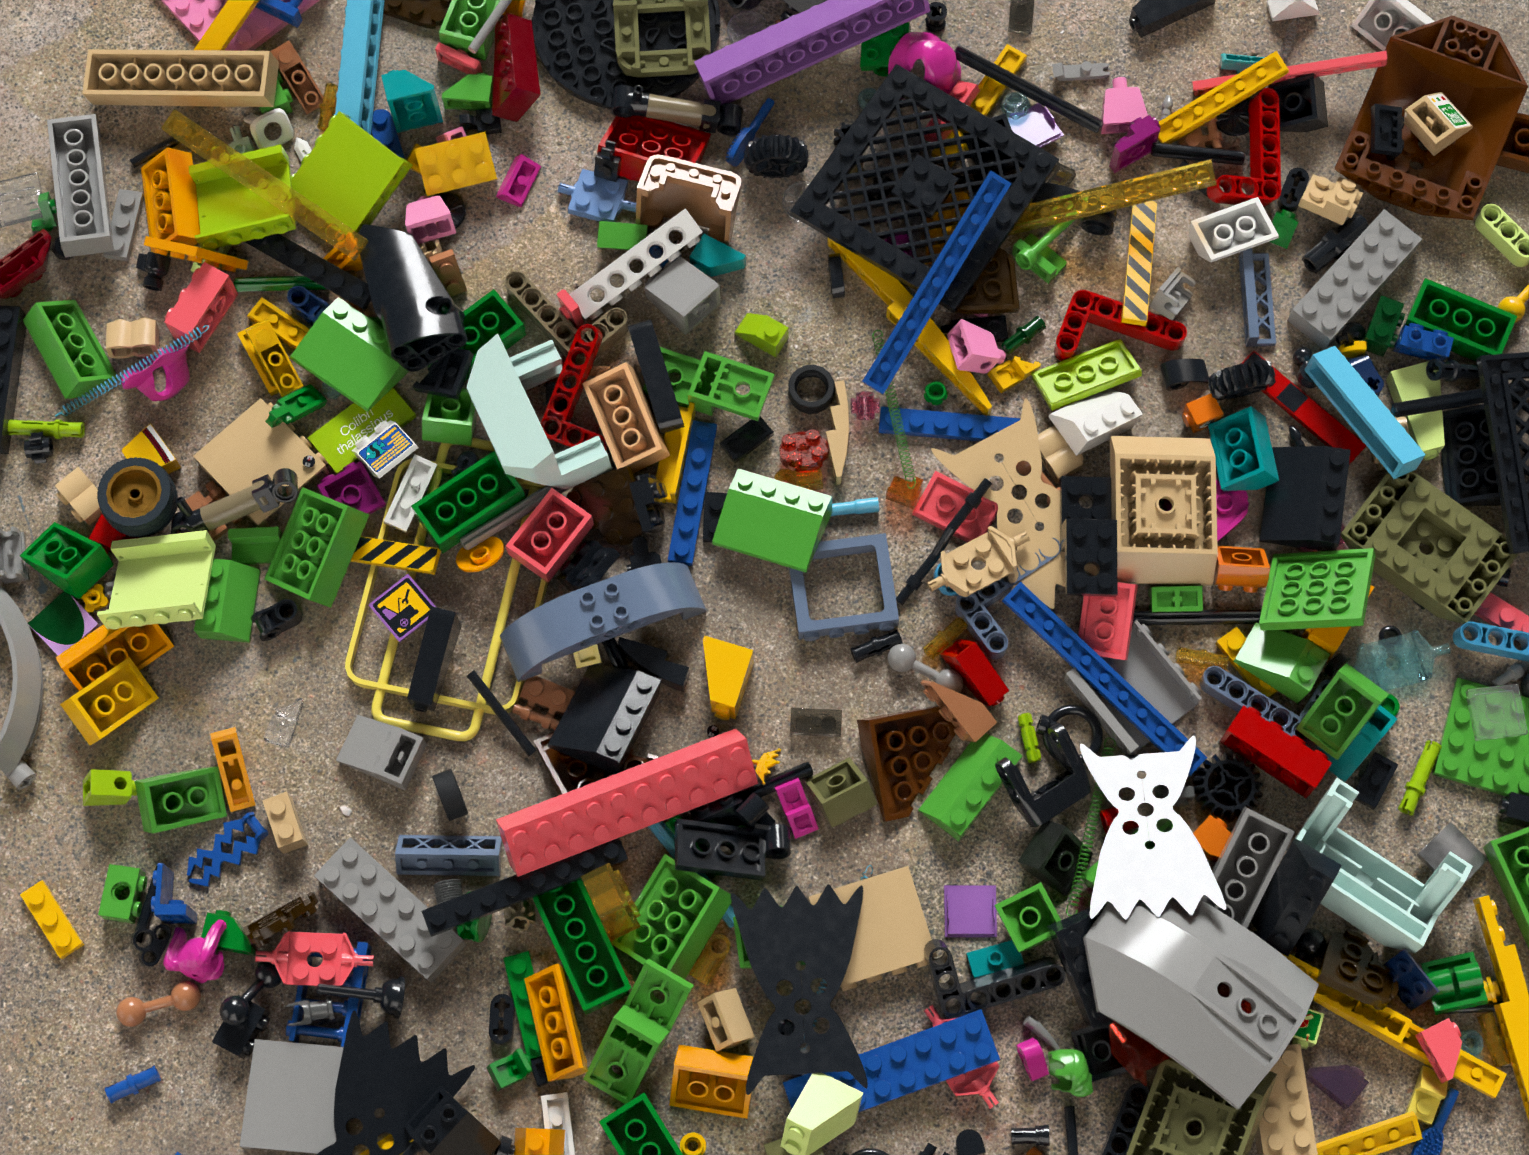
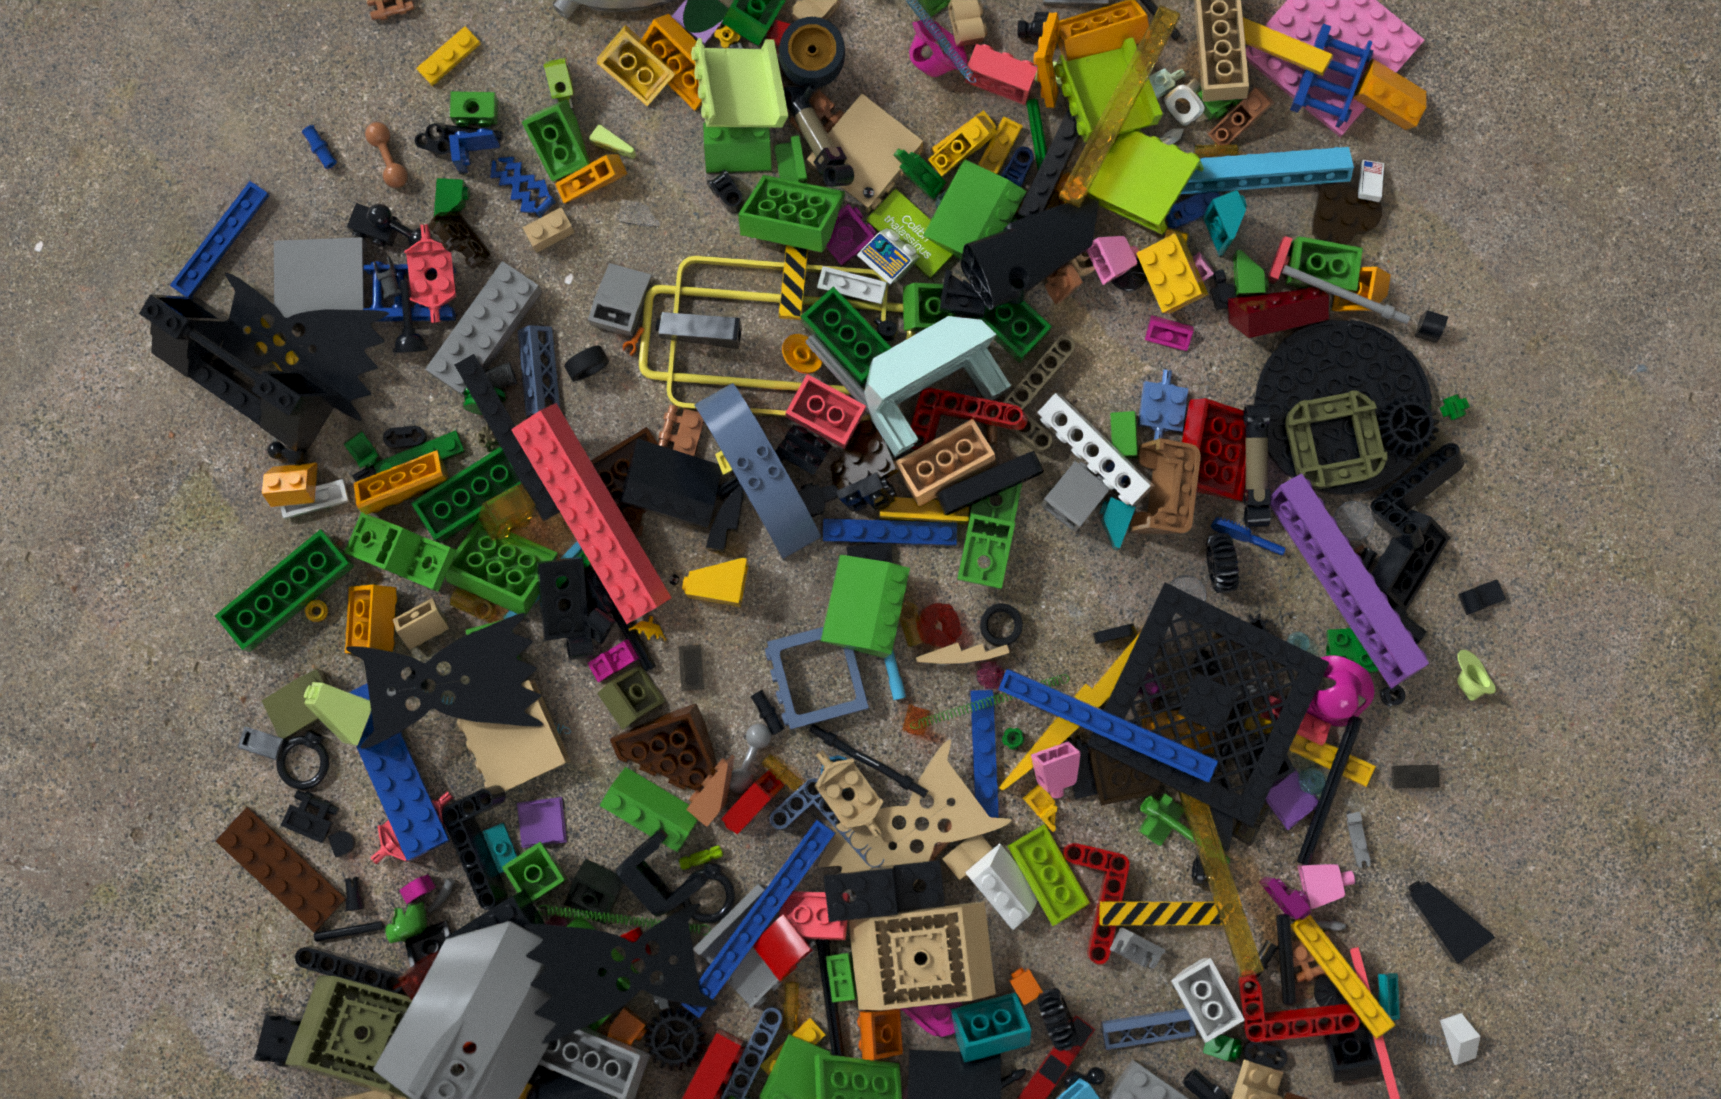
camera: 80 degrees right, 10 degrees up
(151, 446) = (861, 56): yellow torso -> none
(192, 743) = (605, 139): none -> yellowish green slope
(196, 956) = (425, 176): dark pink hair -> none
(402, 607) = (745, 296): piece -> none
(432, 742) = (634, 340): none -> orange hand
(501, 713) = (664, 395): black bar -> none
(570, 308) = (1043, 396): coral plate -> none
(606, 163) = (1190, 409): black plate -> none
(746, 439) = (944, 572): black plate -> none
(763, 333) = (1049, 573): lime slope -> none
(943, 501) = (907, 757): coral tile -> none
(1024, 335) = (1080, 813): dark green axle -> none
(1139, 654) = (782, 947): none -> red slope
(1180, 372) = (1063, 966): black panel -> none

